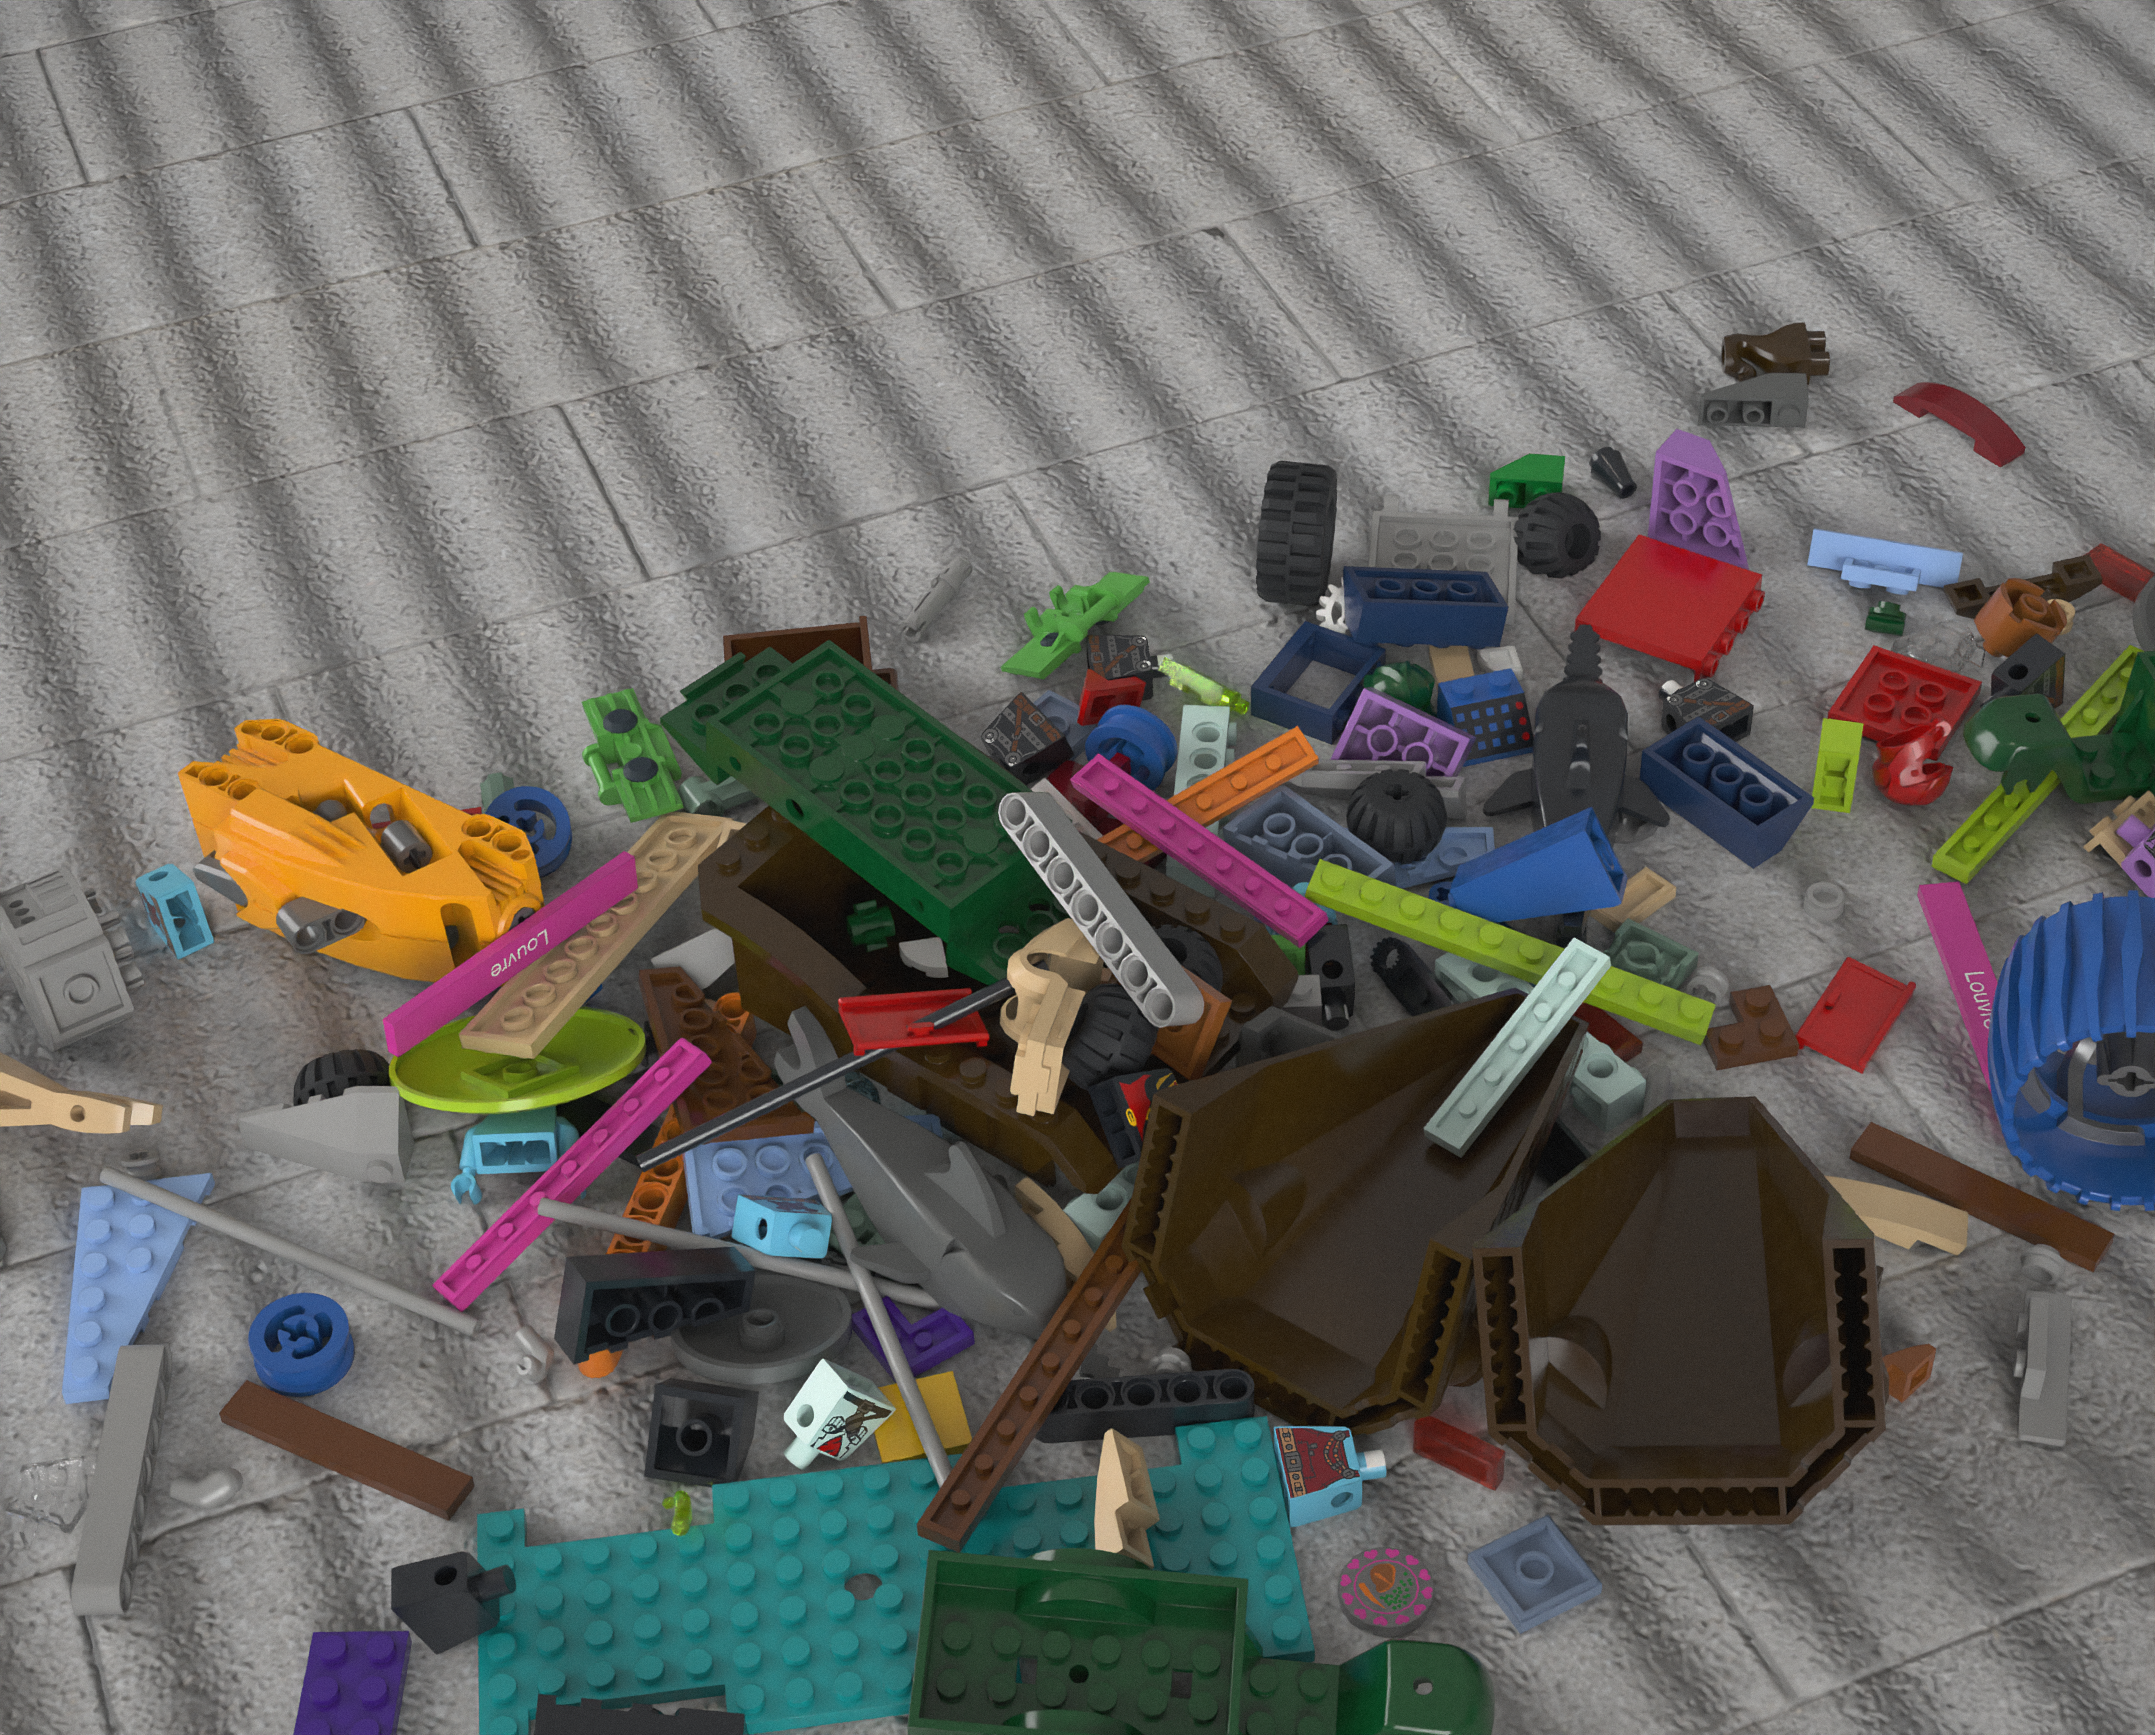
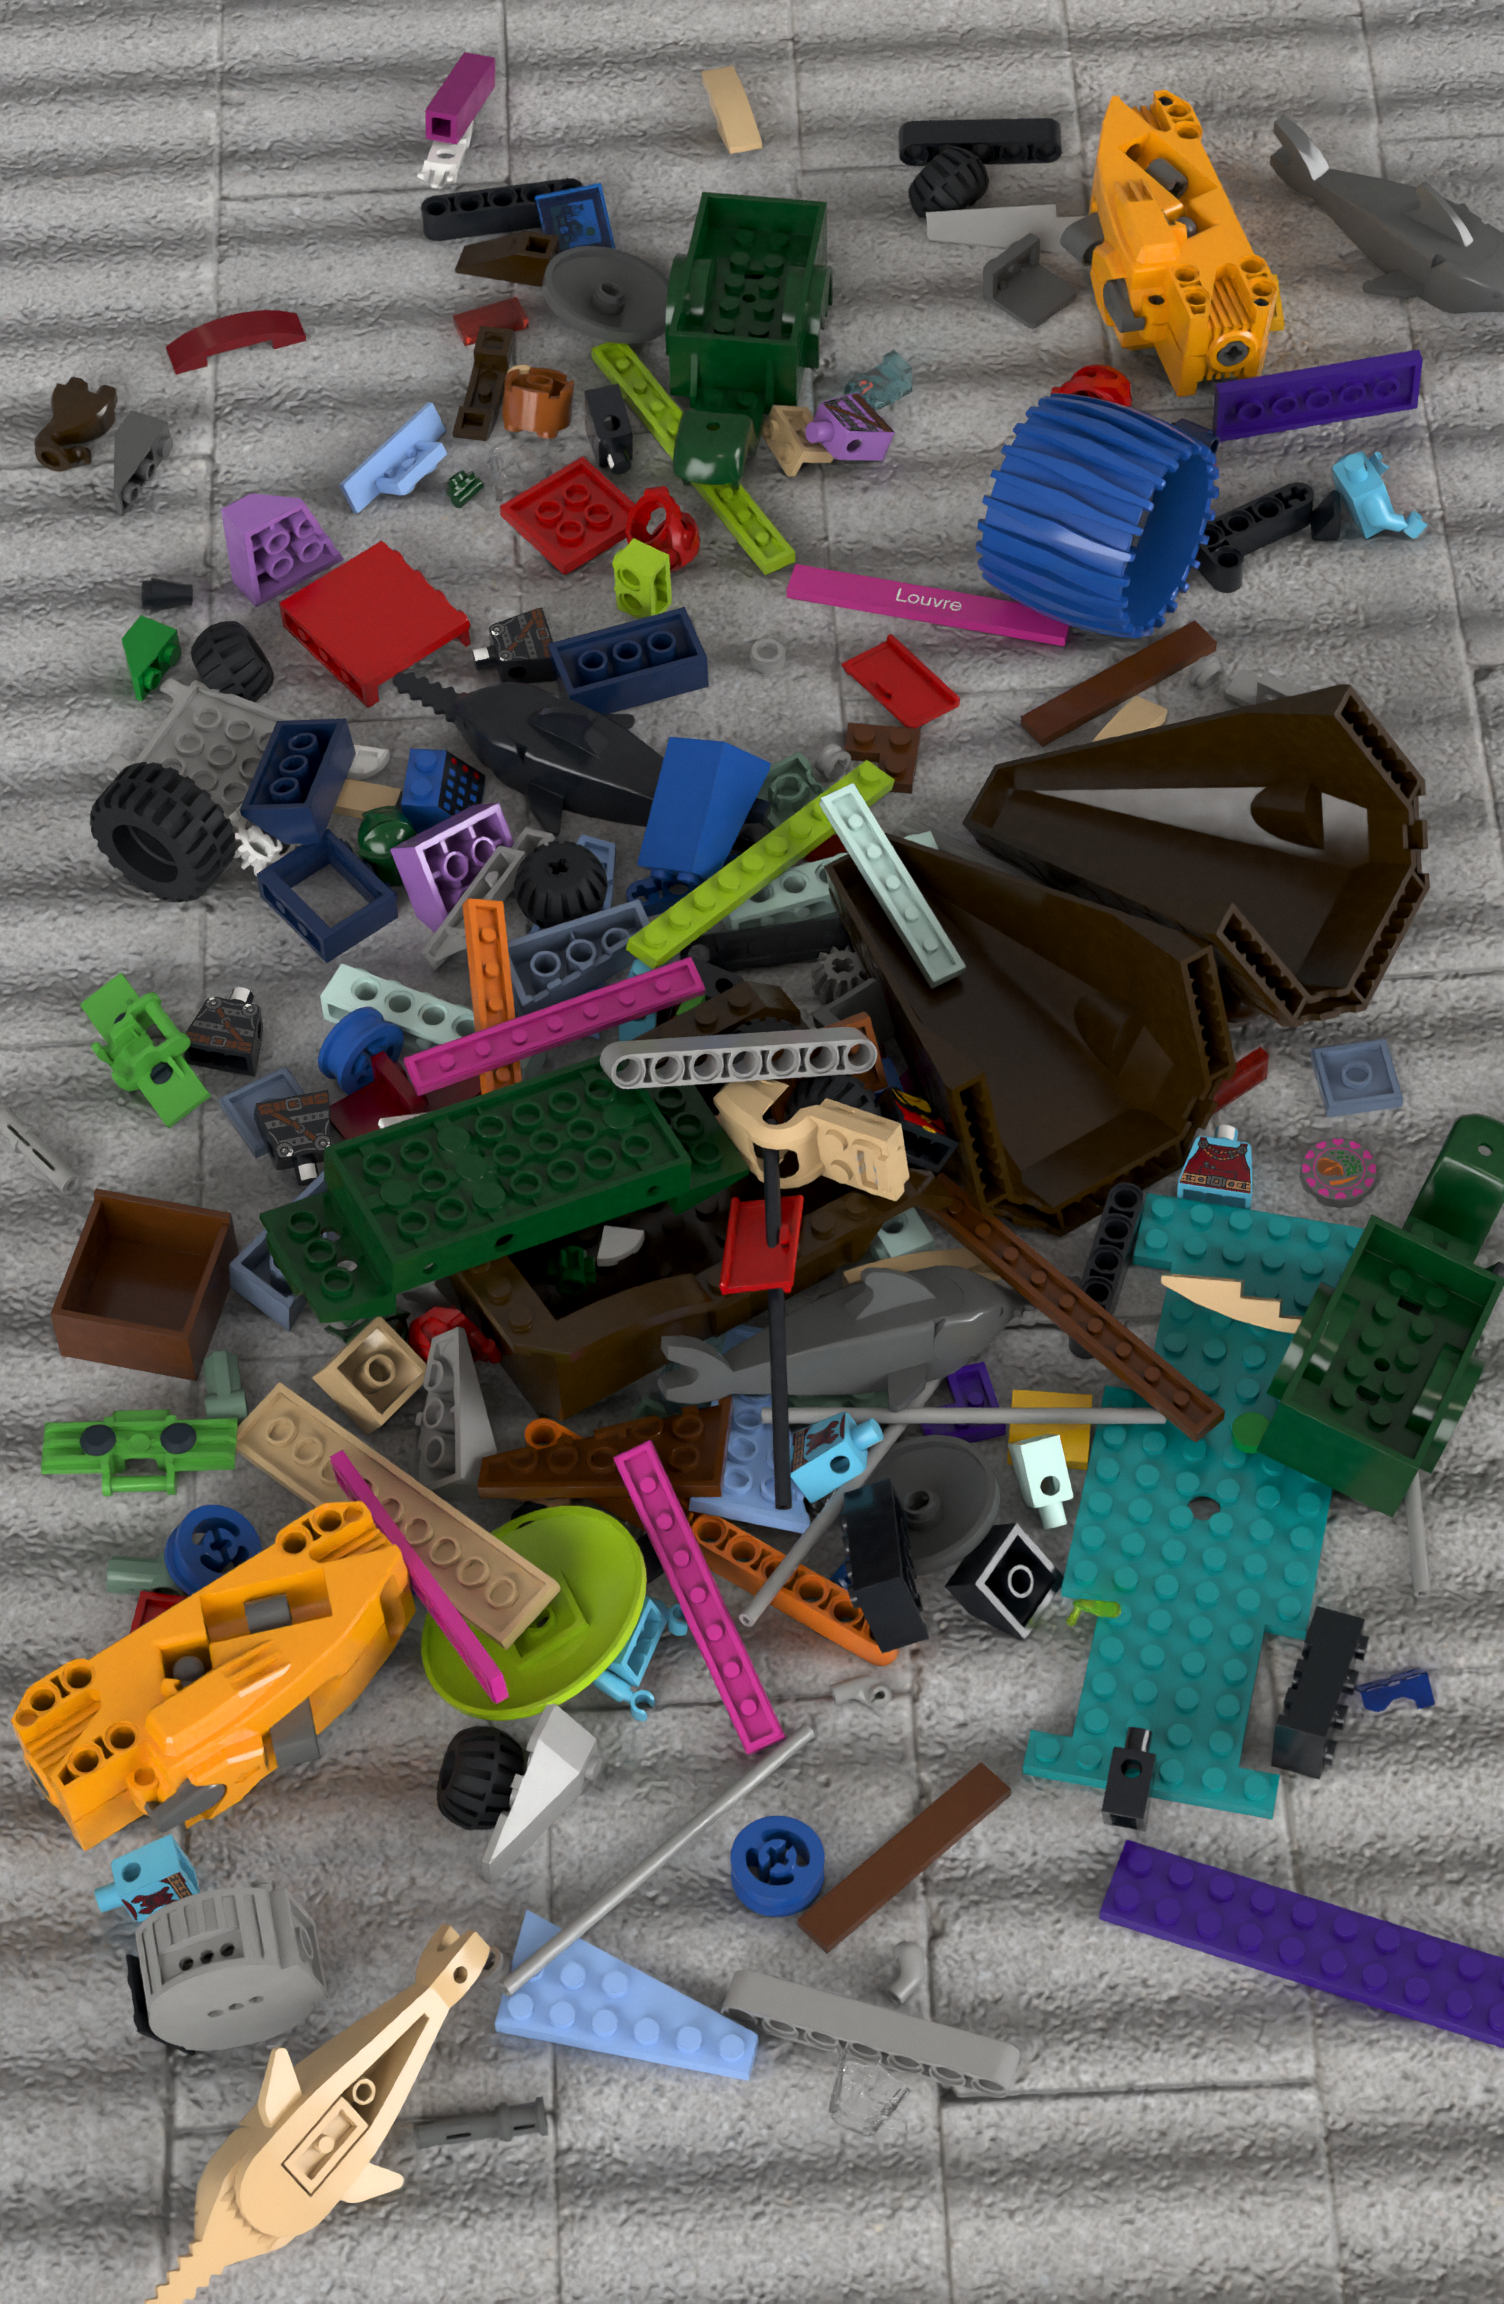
camera: 70 degrees left, 10 degrees up
(1101, 695) = (269, 1057): red slope -> none
(1170, 1361) = (1075, 1240): light grey plate -> none
(1202, 685) = (284, 983): clear neon green plate -> none

